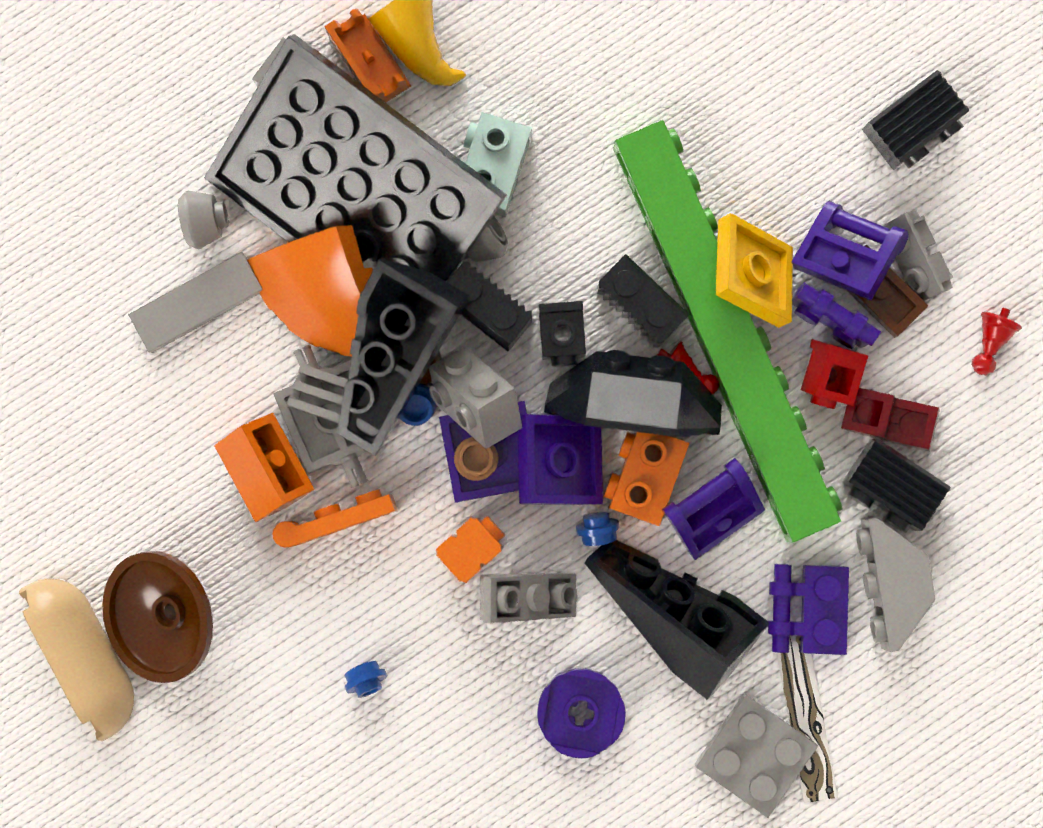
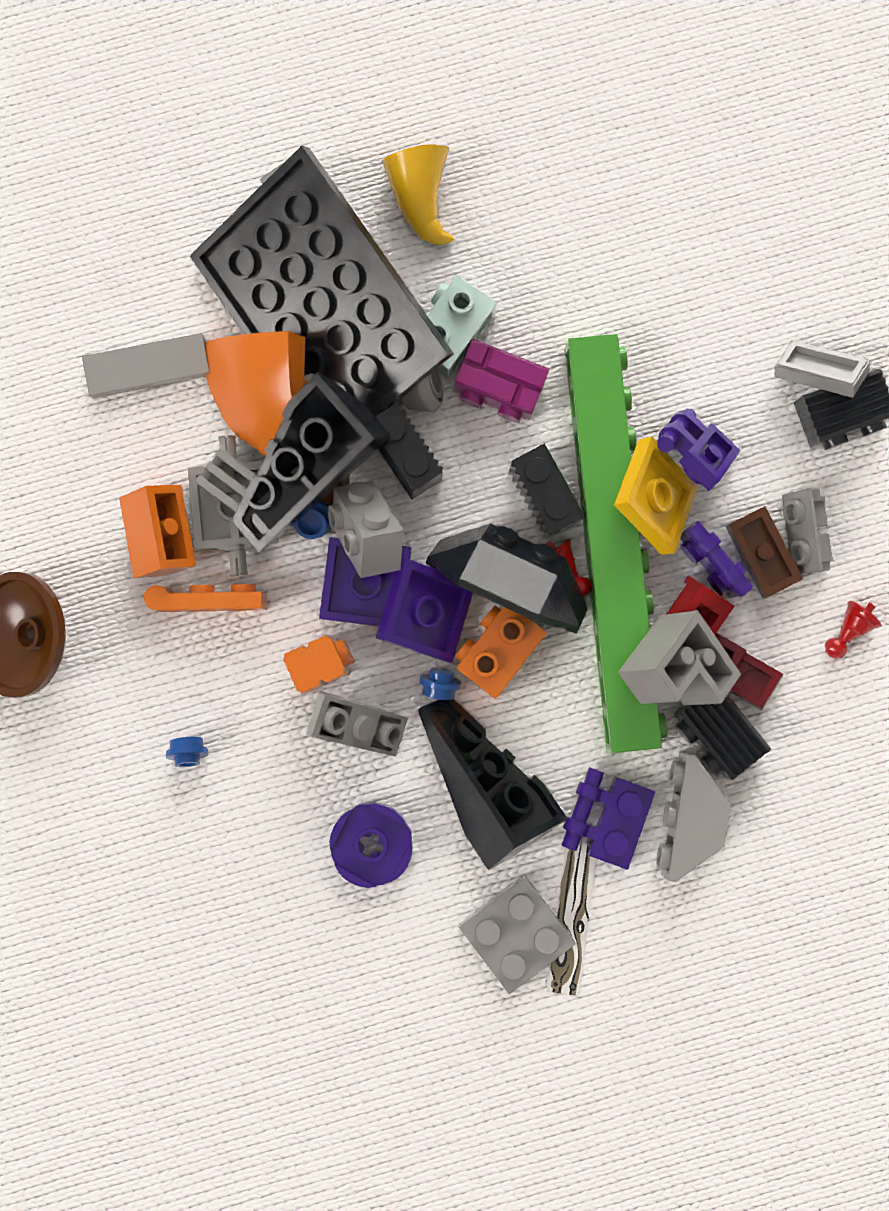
camera: 10 degrees right, 0 degrees up
(201, 218) = (174, 291): light grey cone -> none
(367, 56) = (371, 194): orange hinge -> none
(474, 460) = (348, 586): medium nougat plate -> none
(556, 315) = (469, 480): black brick -> none
(560, 204) = (500, 381): none -> magenta brick
(715, 510) = (561, 707): dark purple plate -> none
(787, 207) = (703, 449): none -> dark purple plate
(831, 431) = (680, 663): none -> light grey brick
(844, 261) = (740, 514): dark purple plate -> none
(879, 88) = (822, 368): none -> light grey tile

